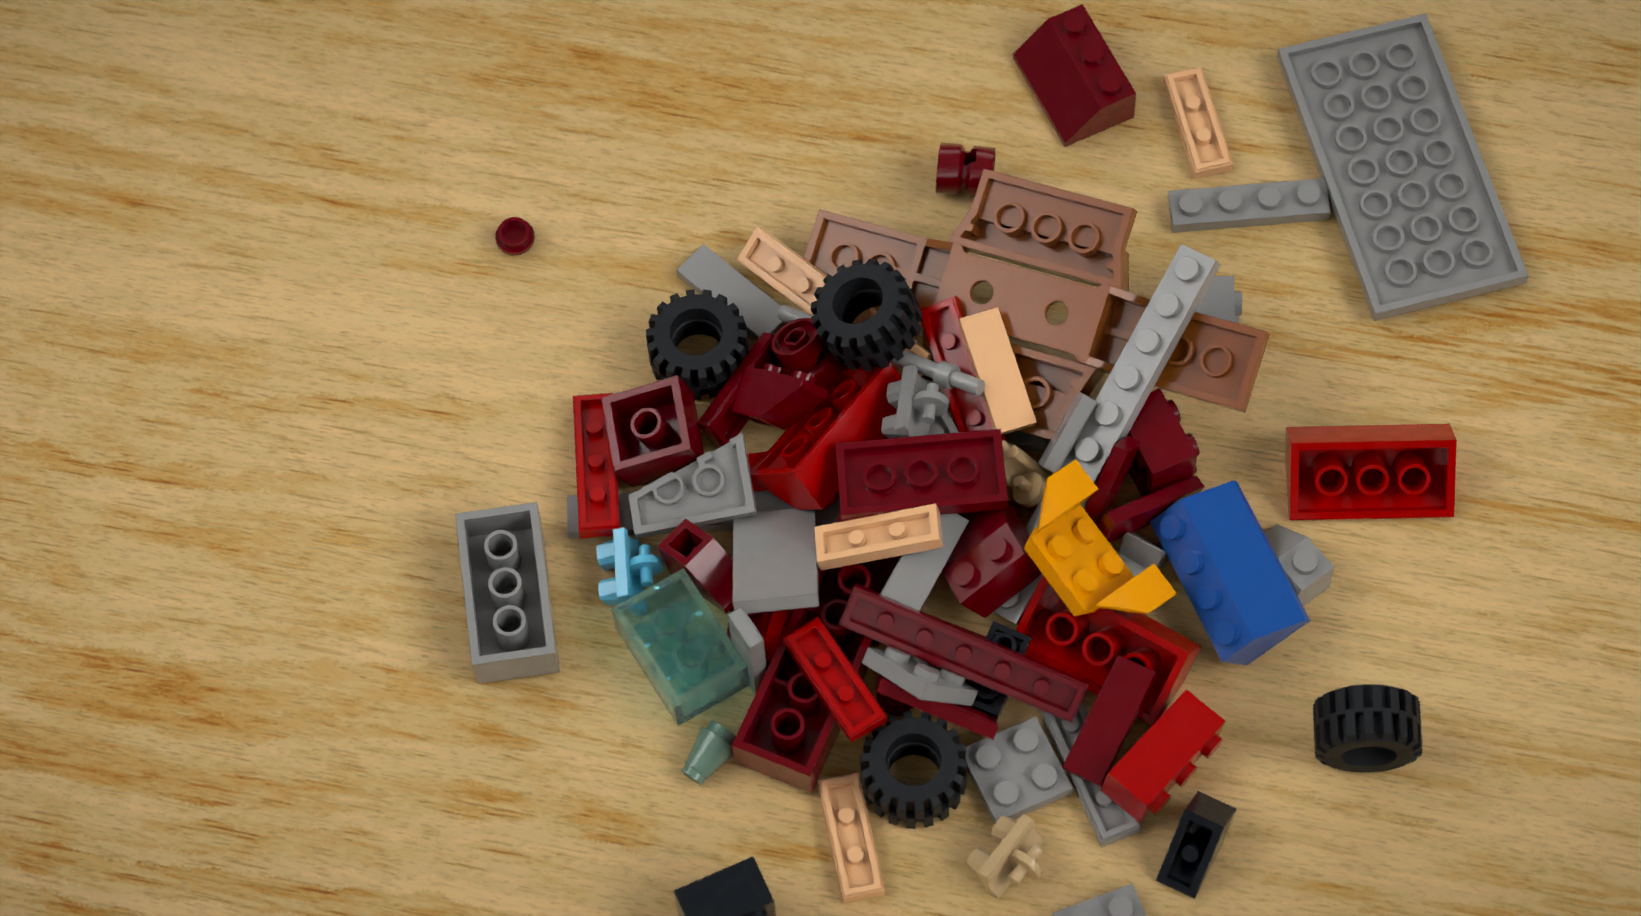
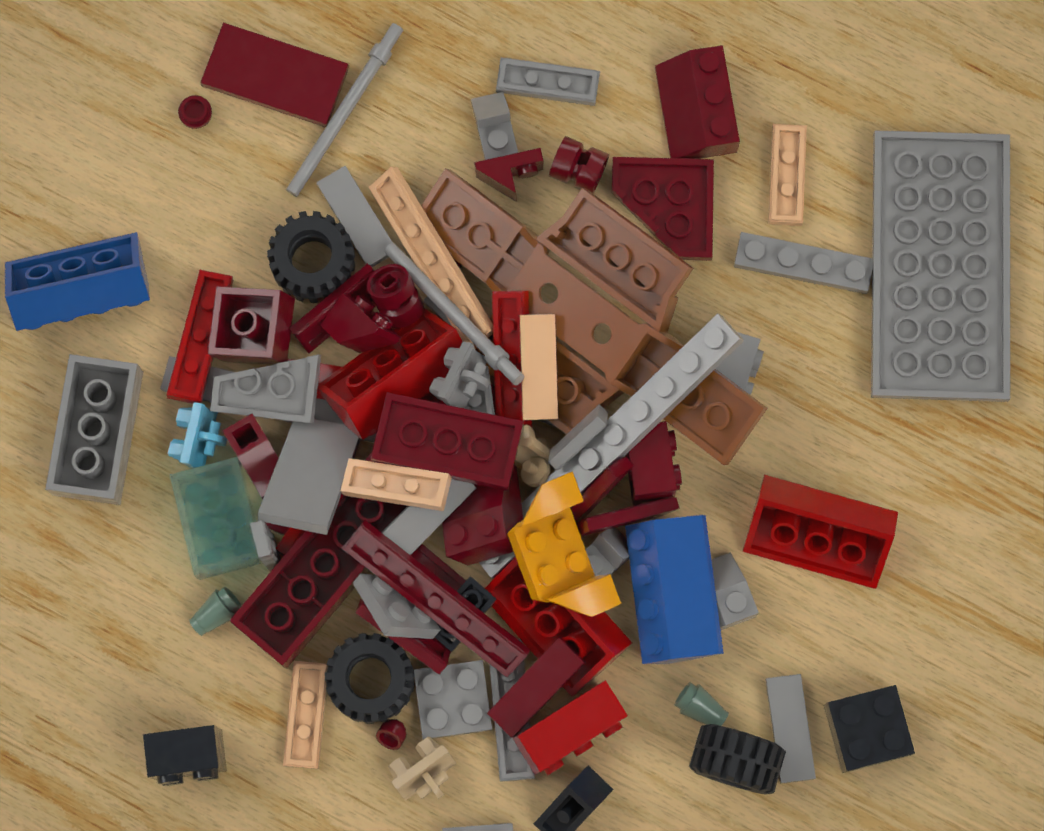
camera: 15 degrees right, 15 degrees up
(437, 447) = (76, 282): none -> blue slope
(592, 175) = (274, 75): none -> dark red tile
(703, 126) = (378, 56): none -> light grey bar
(834, 679) = (326, 591): red tile -> none
(849, 295) = (430, 268): black tyre -> none
(857, 162) = (494, 125): none -> light grey slope
(882, 200) = (500, 170): none -> dark red slope
(900, 101) = (547, 81): none -> light grey tile
(958, 827) = (391, 734): none -> dark red hinge
(1079, 163) = (670, 200): none -> dark red plate
(1297, 691) = (700, 705): none -> sand green cone
(1403, 668) = (791, 727): none -> light grey tile
(1502, 661) = (869, 729): none -> black brick

